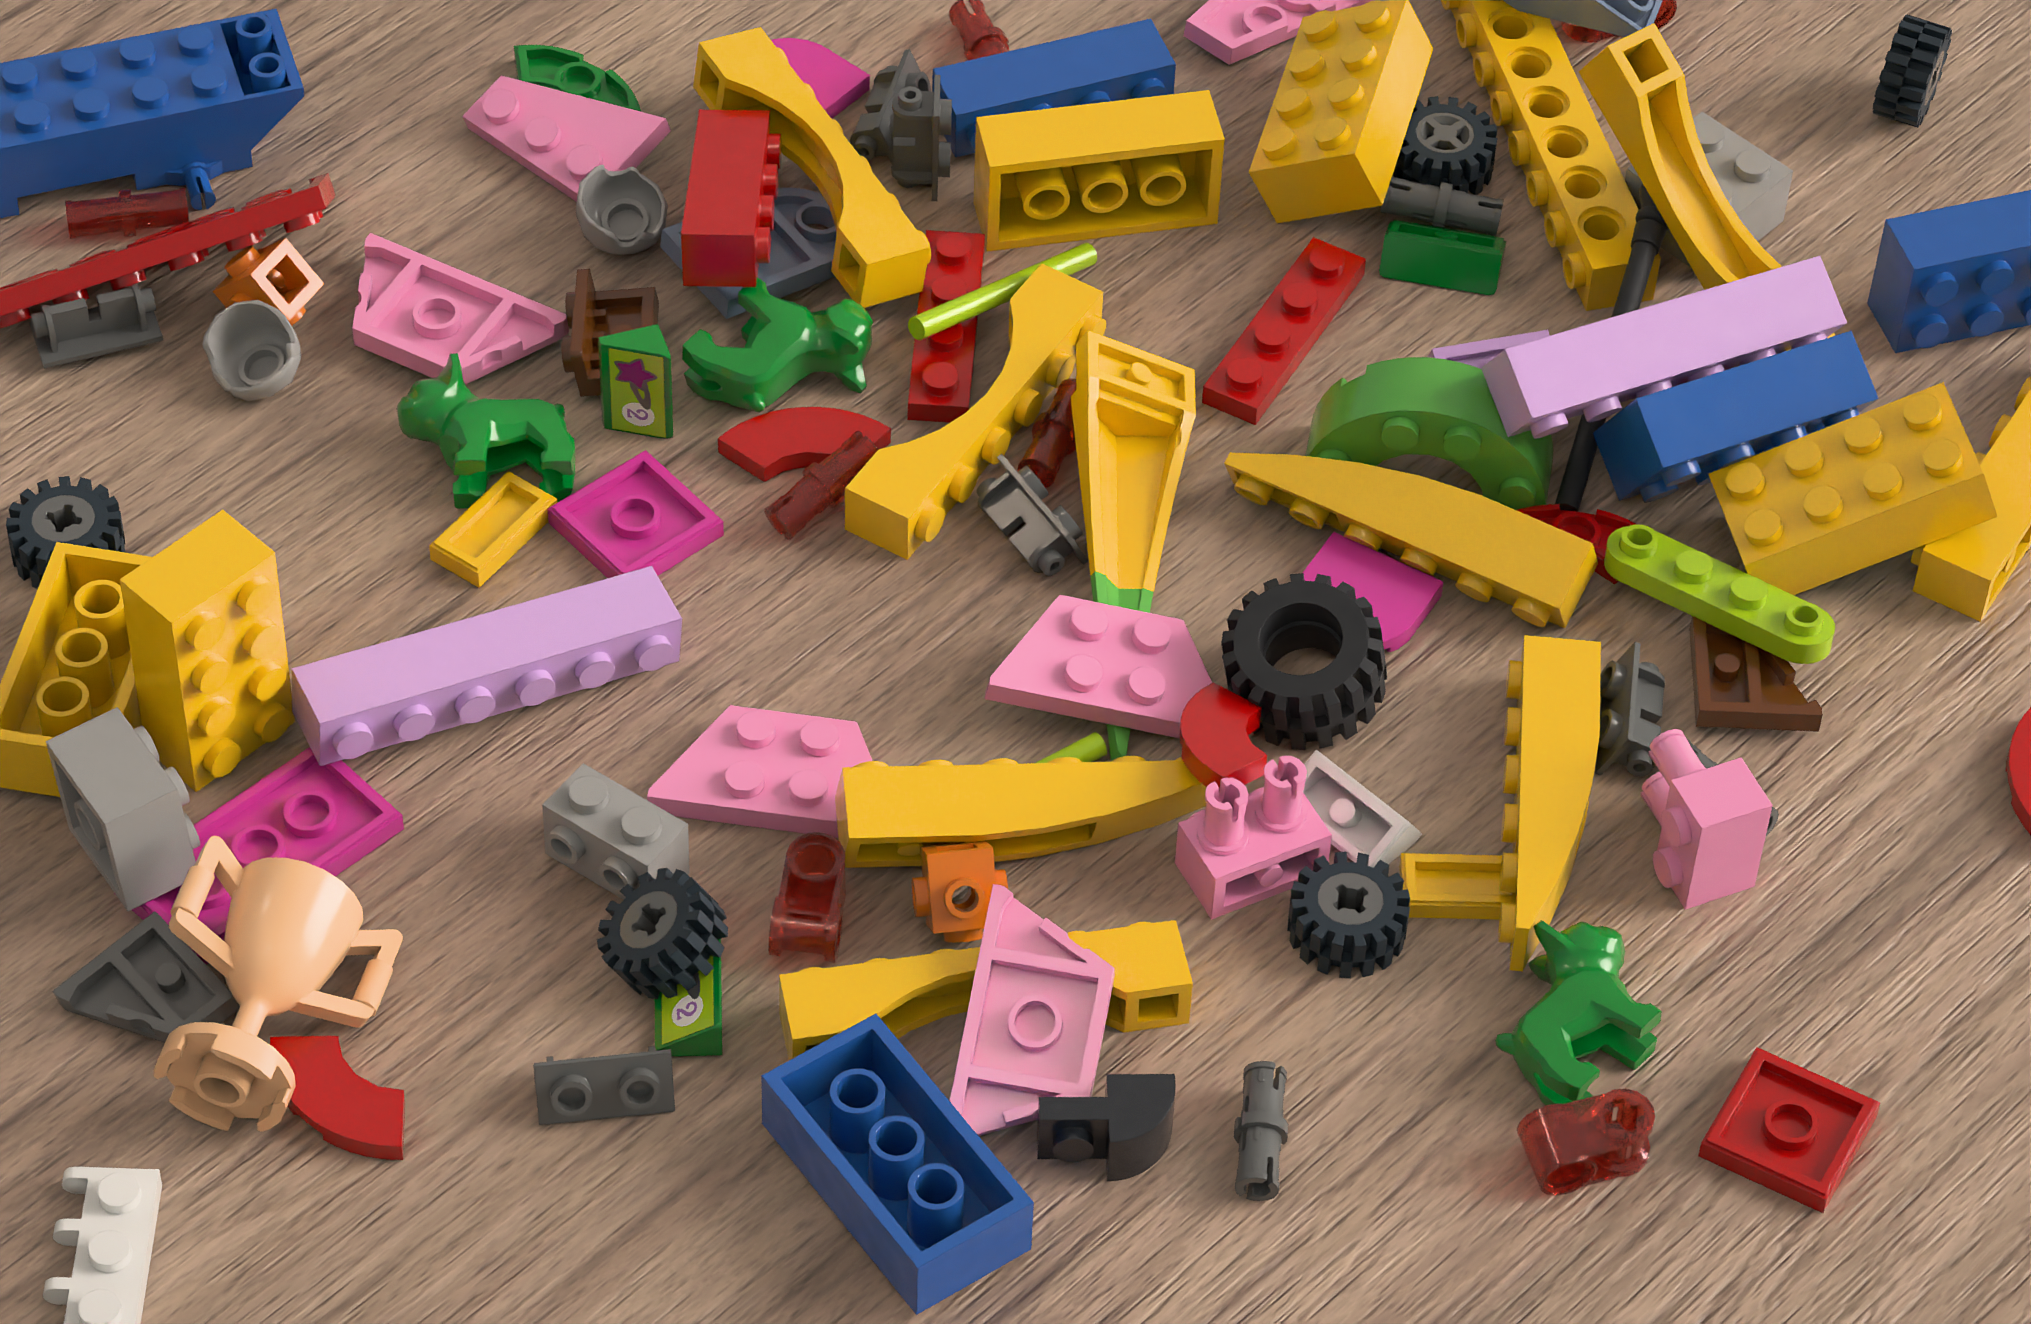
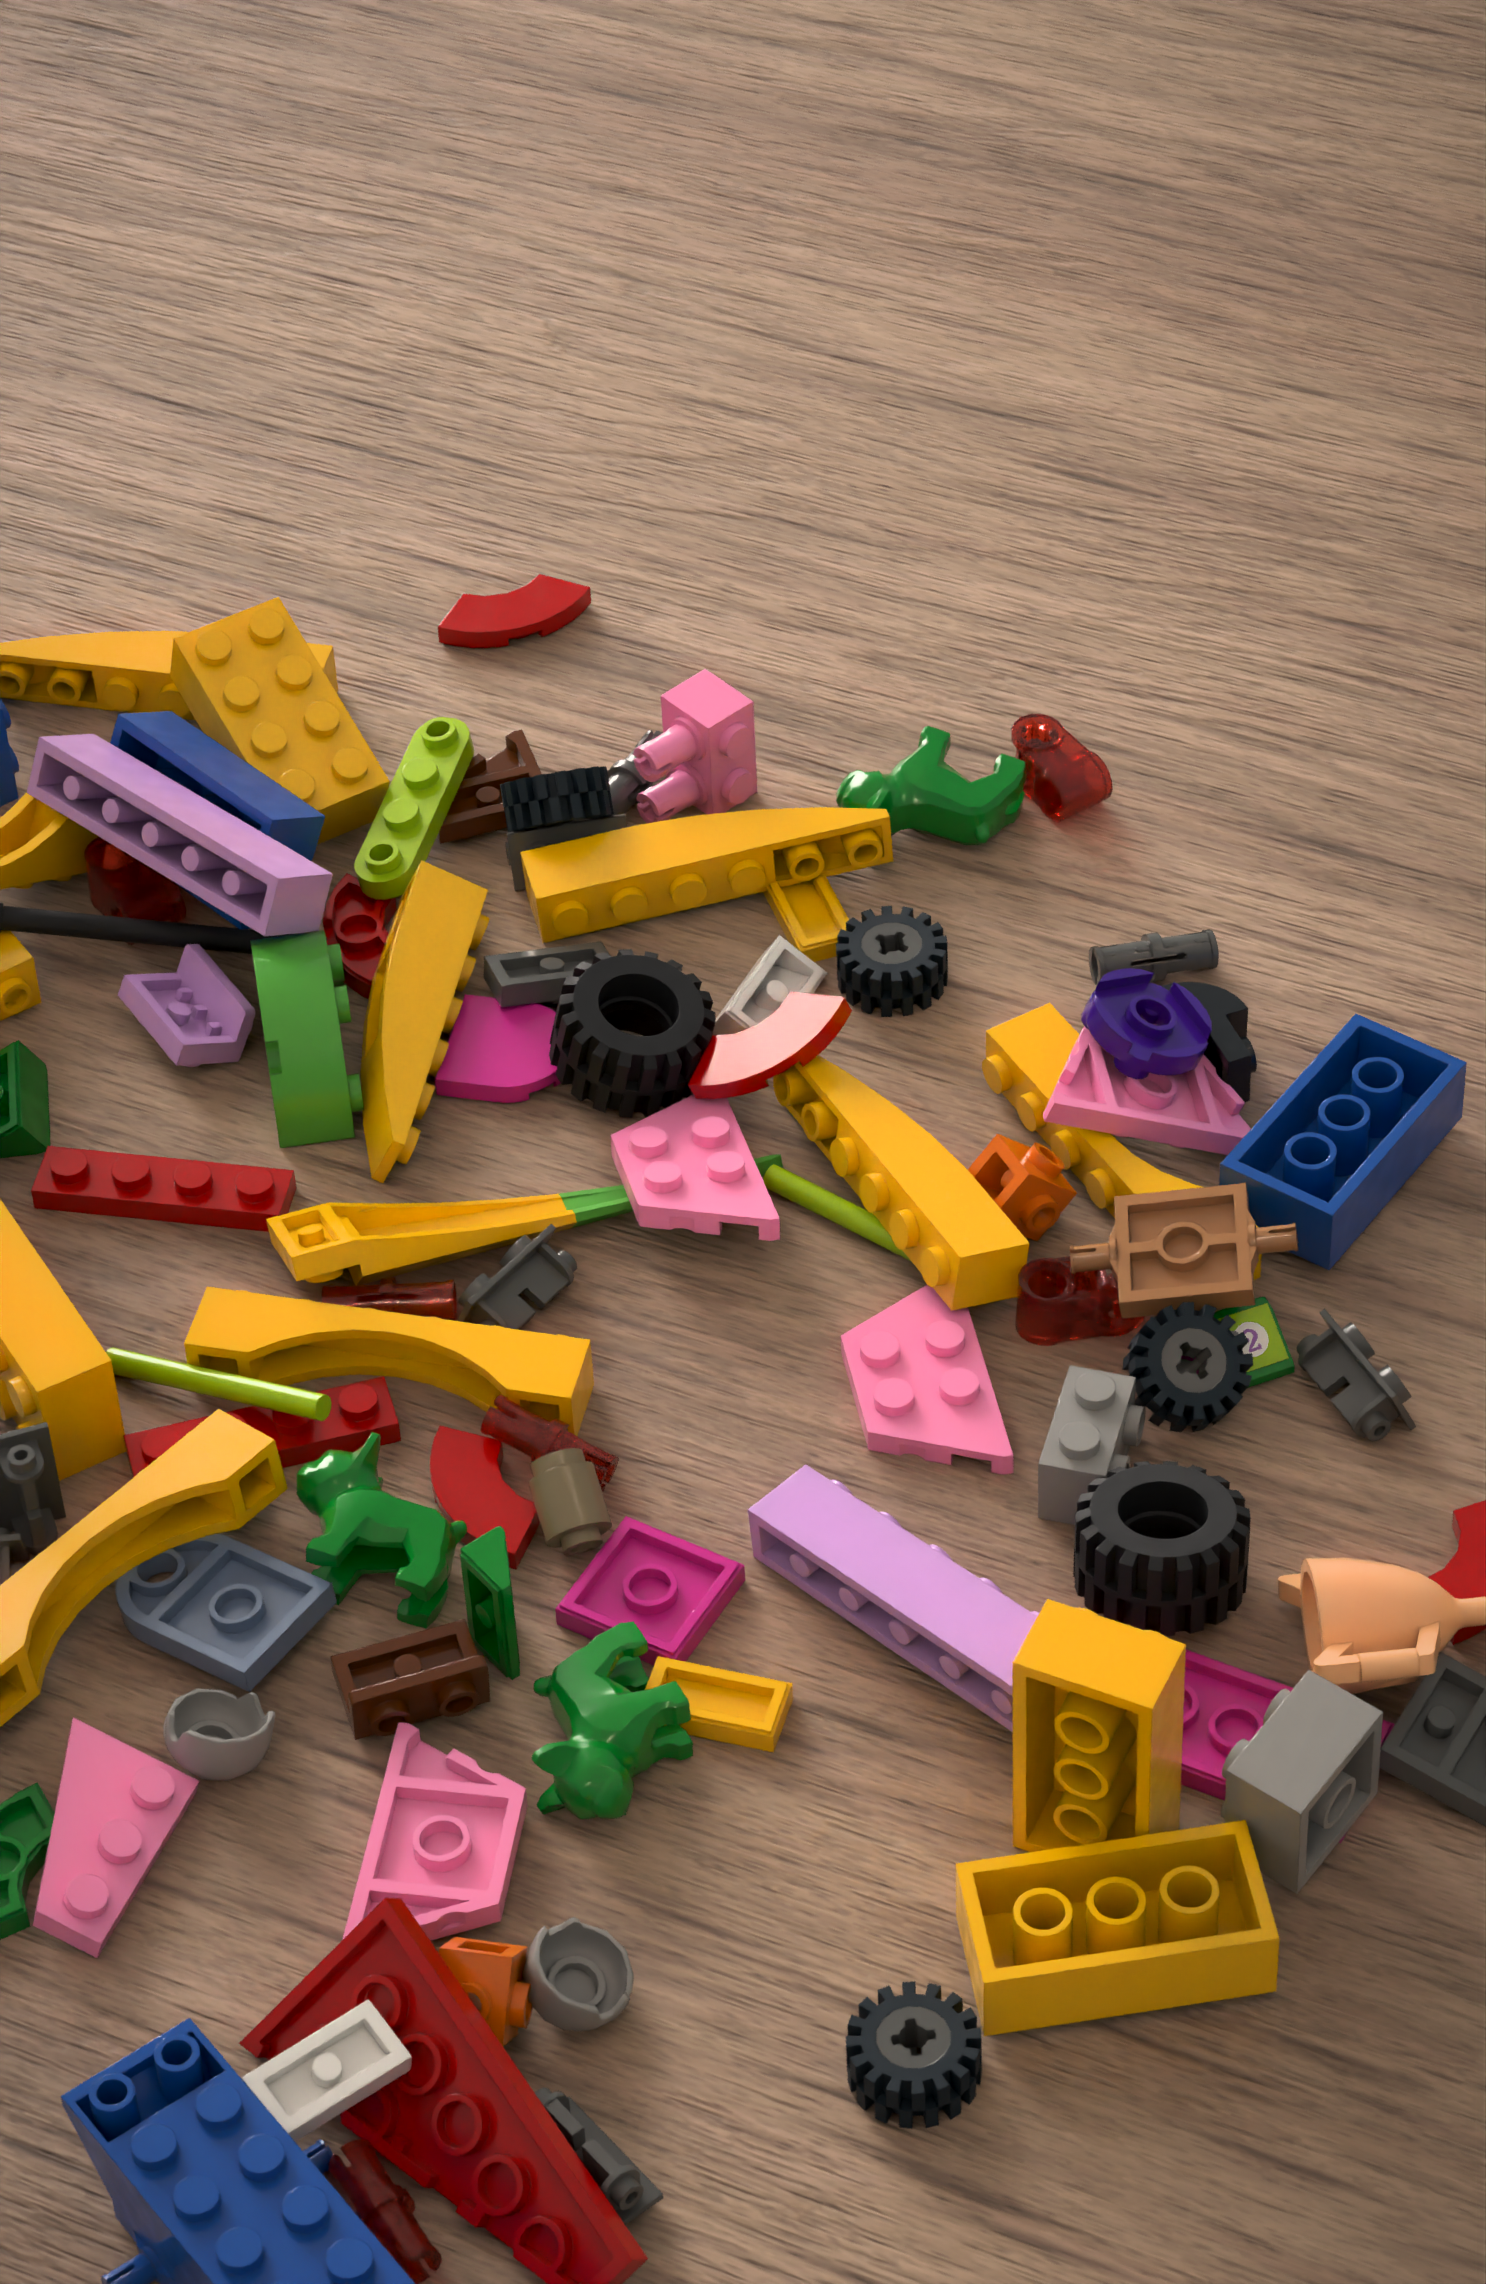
camera: 105 degrees left, 5 degrees down
(218, 159) = (330, 2070): none -> white plate
(465, 794) = (1161, 1547): none -> black tyre
(730, 198) = (198, 1603): red brick -> none
(743, 472) = (569, 1501): none -> dark tan brick
(777, 947) = (1184, 1249): none -> medium nougat plate
(1116, 987) = (1147, 1024): none -> dark purple plate
(1251, 842) = (882, 1036): bright pink brick -> none
(1441, 648) = (535, 974): none -> dark grey plate
(1658, 678) = (557, 798): none -> black wheel
(1789, 1129) = (962, 683): red tile -> none

